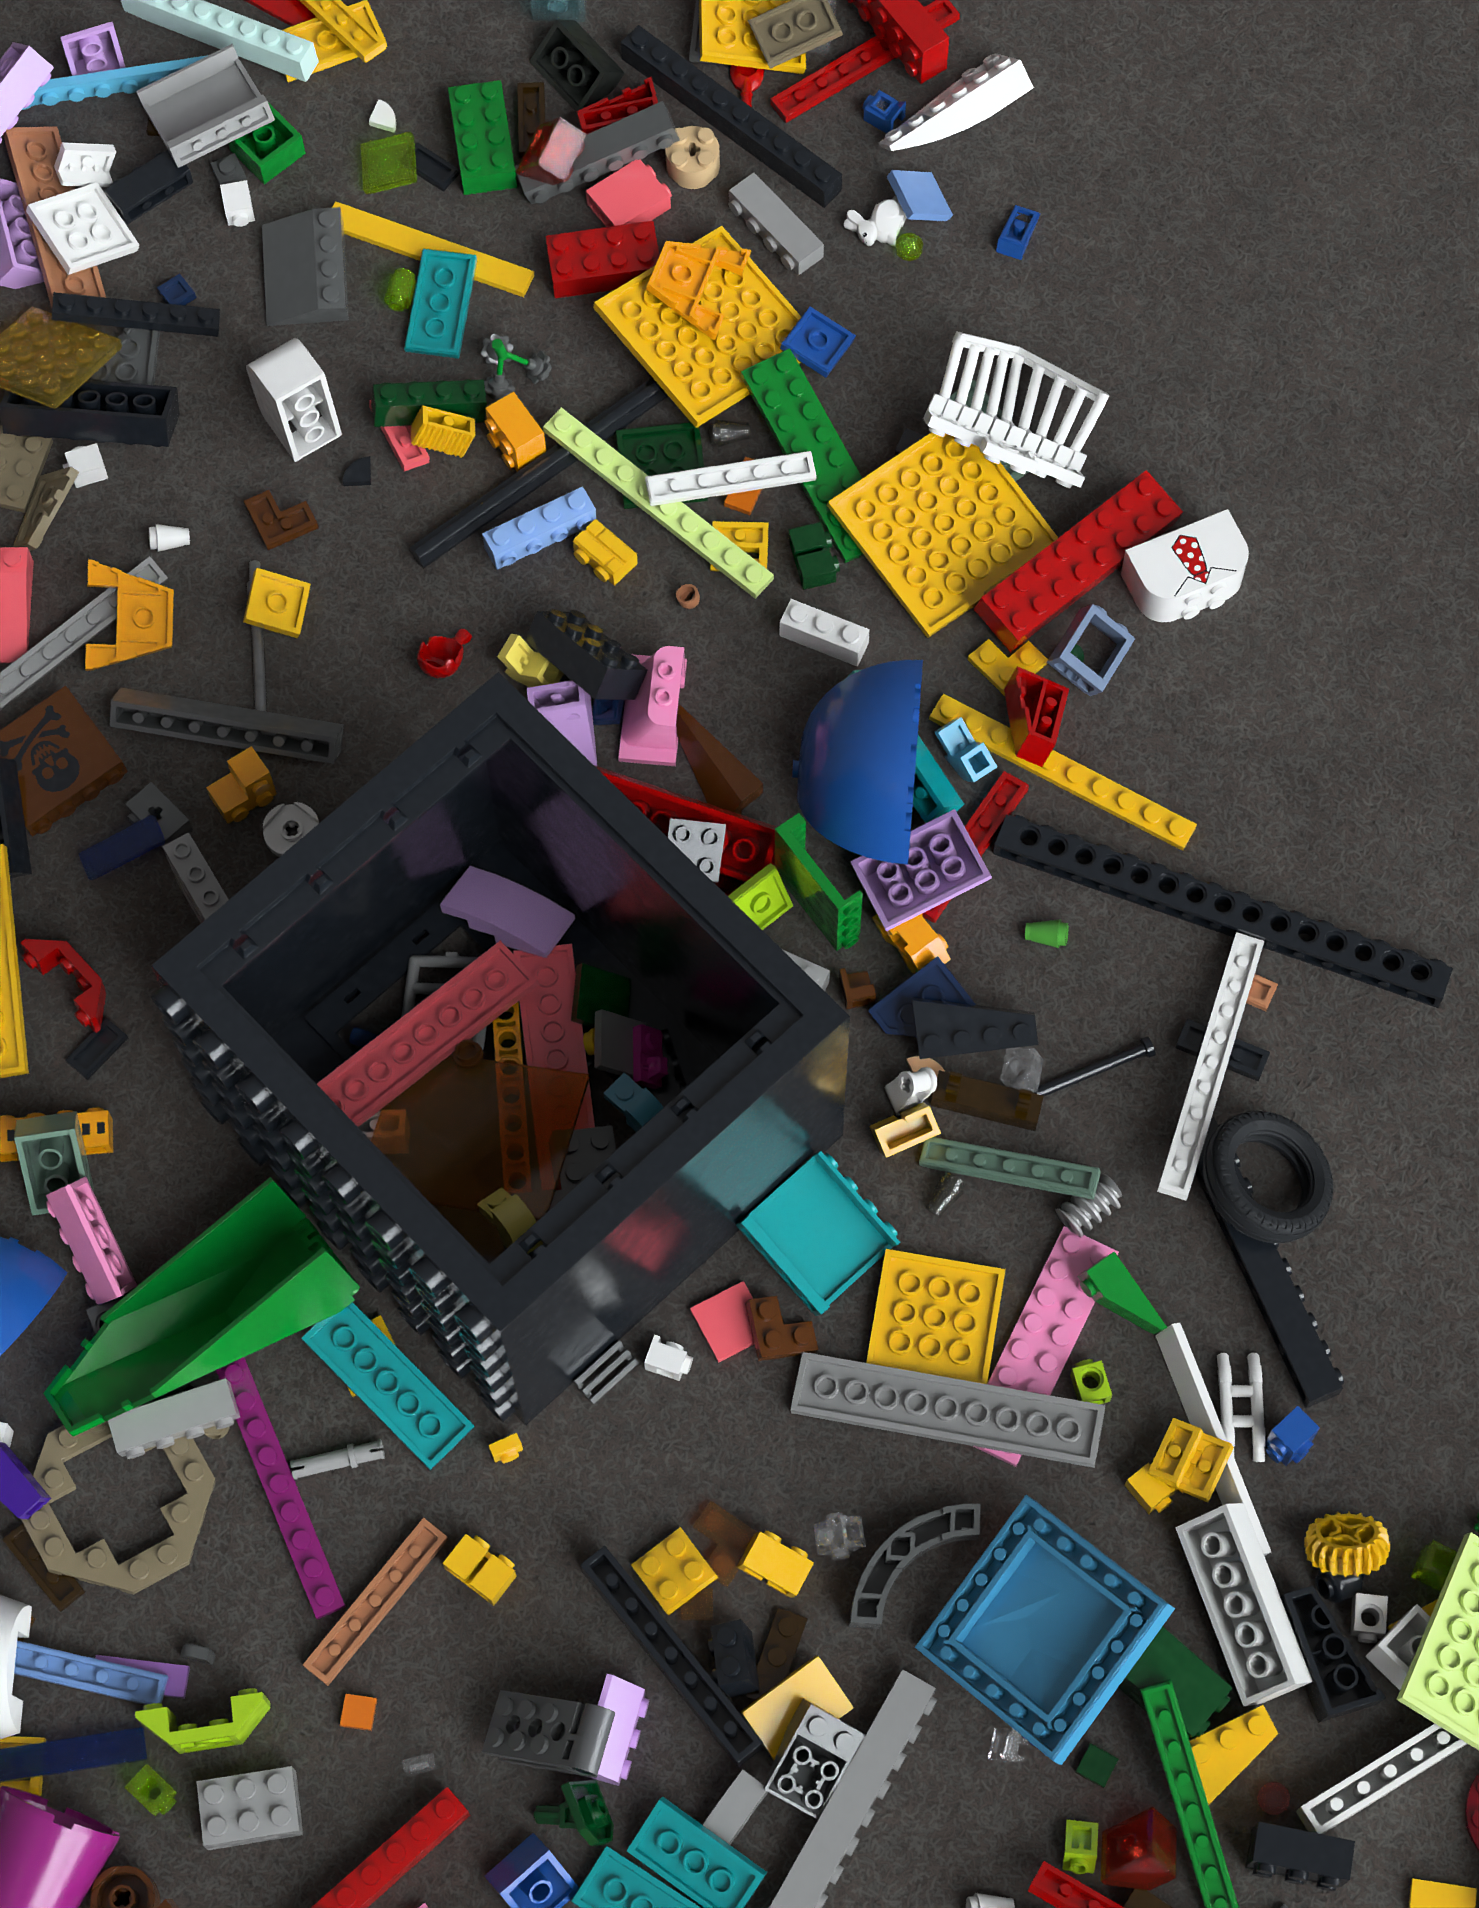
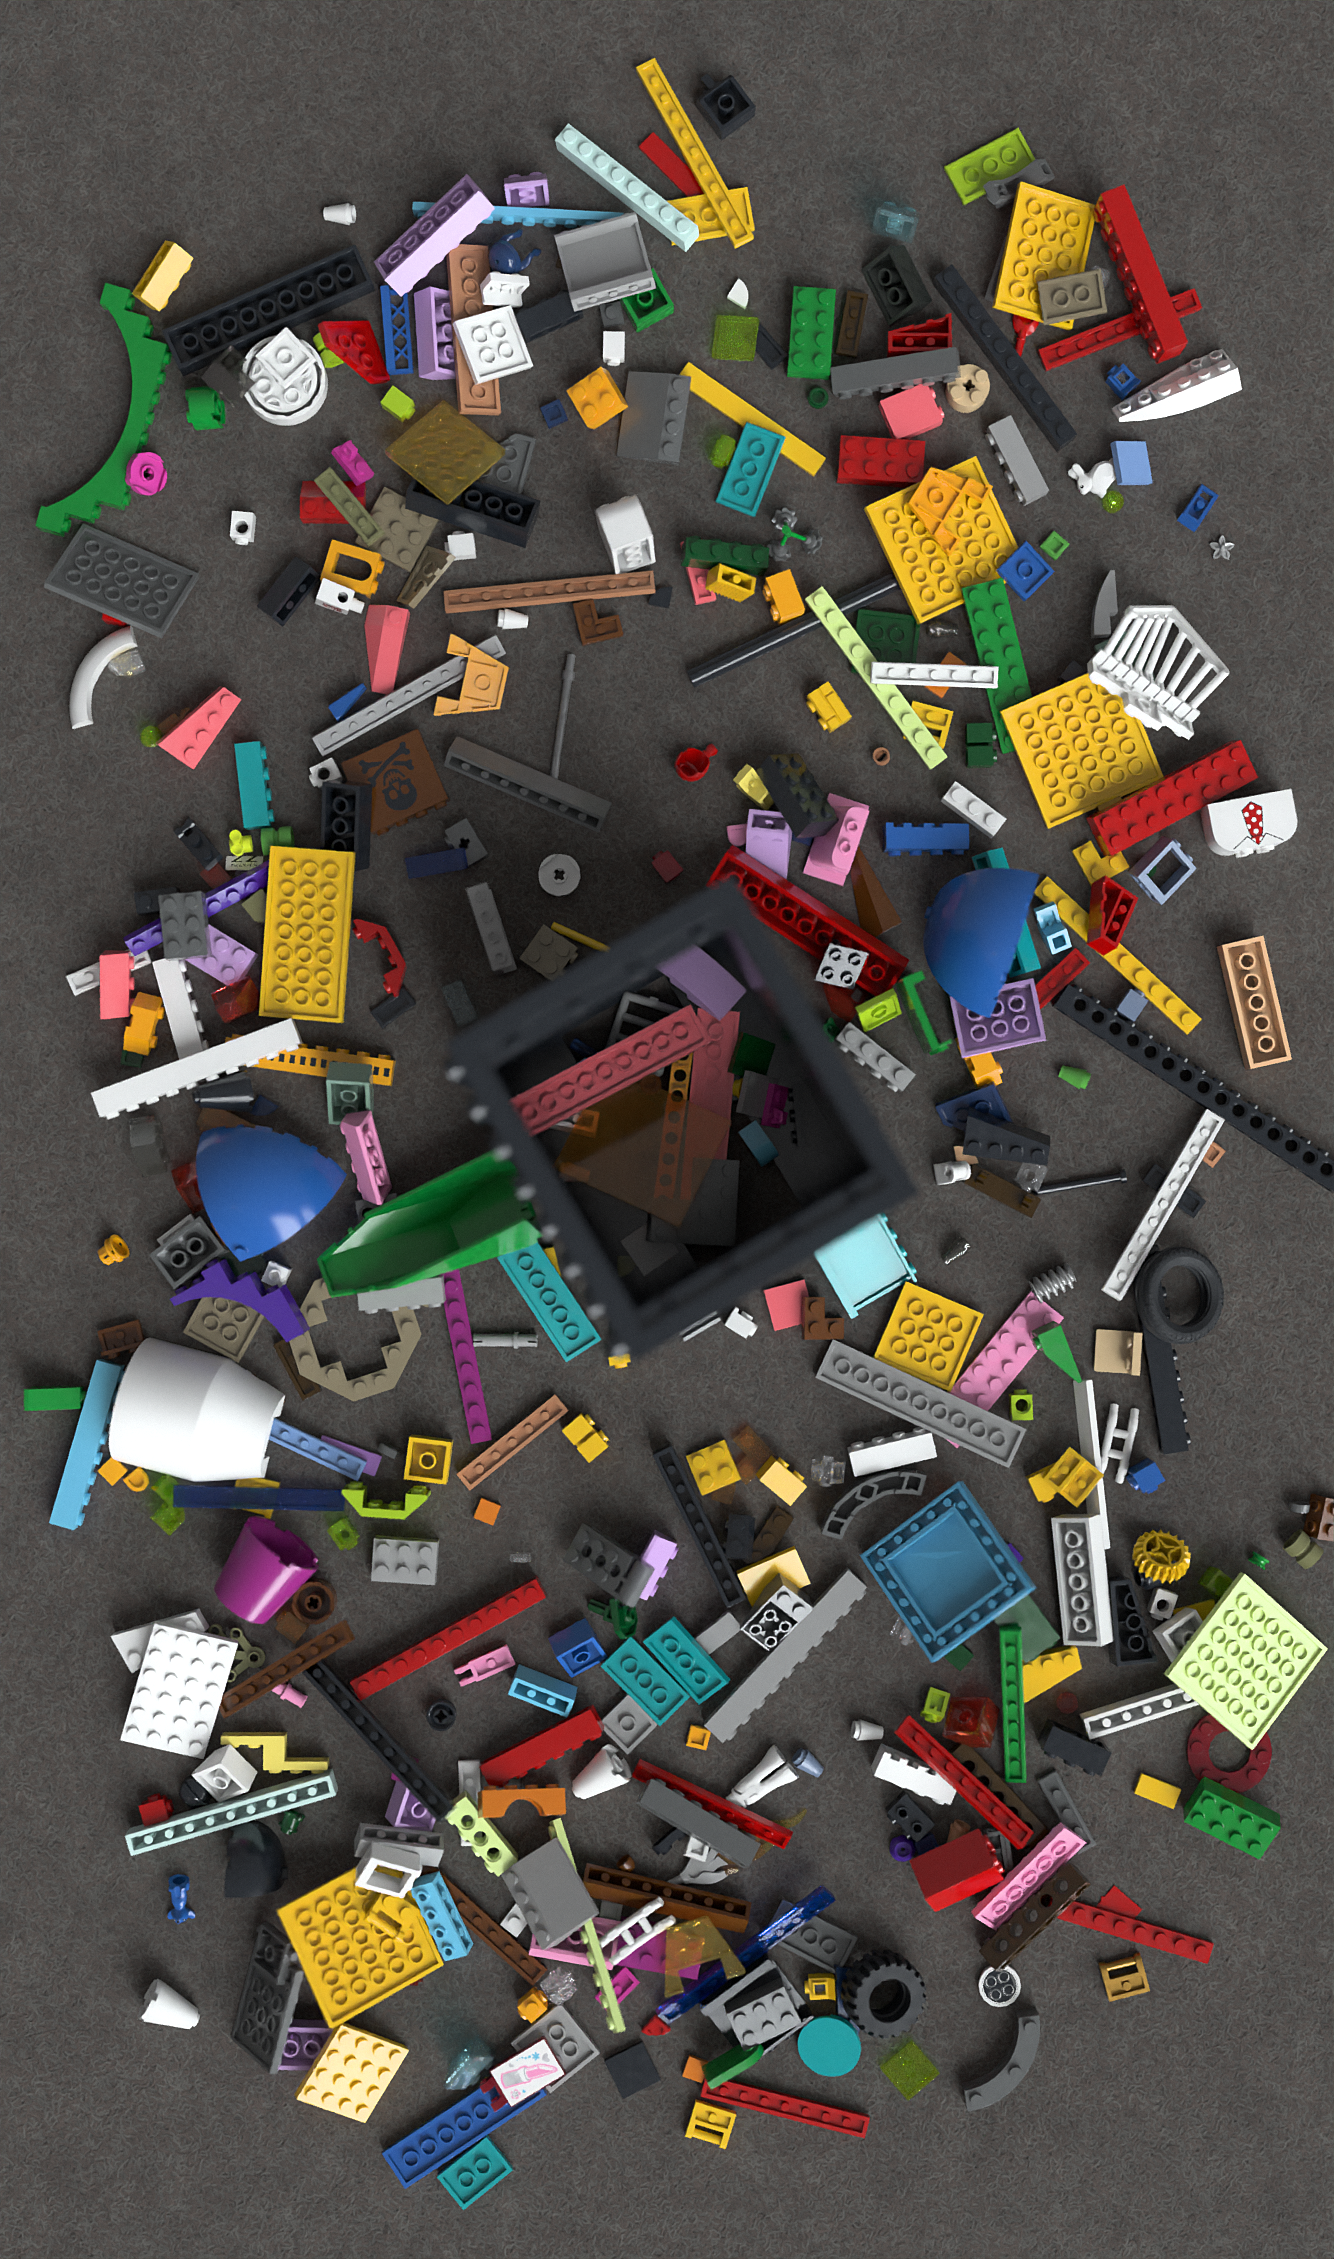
camera: 15 degrees right, 20 degrees up
(80, 127) = (504, 257): none -> dark blue hair
(135, 314) = (520, 429): black plate -> none
(210, 494) = (549, 592): none -> nougat plate
(227, 260) = (597, 398): none -> light orange piece
(243, 788) = (529, 836): light orange brick -> none
(256, 1650) = (428, 1459): none -> yellow brick
(276, 603) = (581, 693): yellow plate -> none
(508, 208) = (818, 398): none -> dark green plate
(508, 1215) = (656, 1224): light yellow brick -> none
(539, 528) = (785, 677): light blue brick -> none
(552, 152) = (861, 368): slope -> none
(768, 679) = (925, 838): none -> blue wedge
(848, 310) = (1054, 545): none -> bright green tile
(856, 989) = (931, 1086): reddish brown panel -> none
(899, 1134) = (940, 1201): yellow piece -> none
(923, 1488) = (891, 1451): none -> white brick
(931, 361) = (1104, 607): none -> light grey slope
(1010, 1167) = (1004, 1244): sand green tile -> none
(1061, 270) = (1221, 548): none -> light grey plant
(1098, 823) = (1131, 1004): none -> sand blue brick
(1207, 1280) = (1118, 1351): none -> tan bracket
(1260, 786) = (1254, 1002): none -> light nougat brick

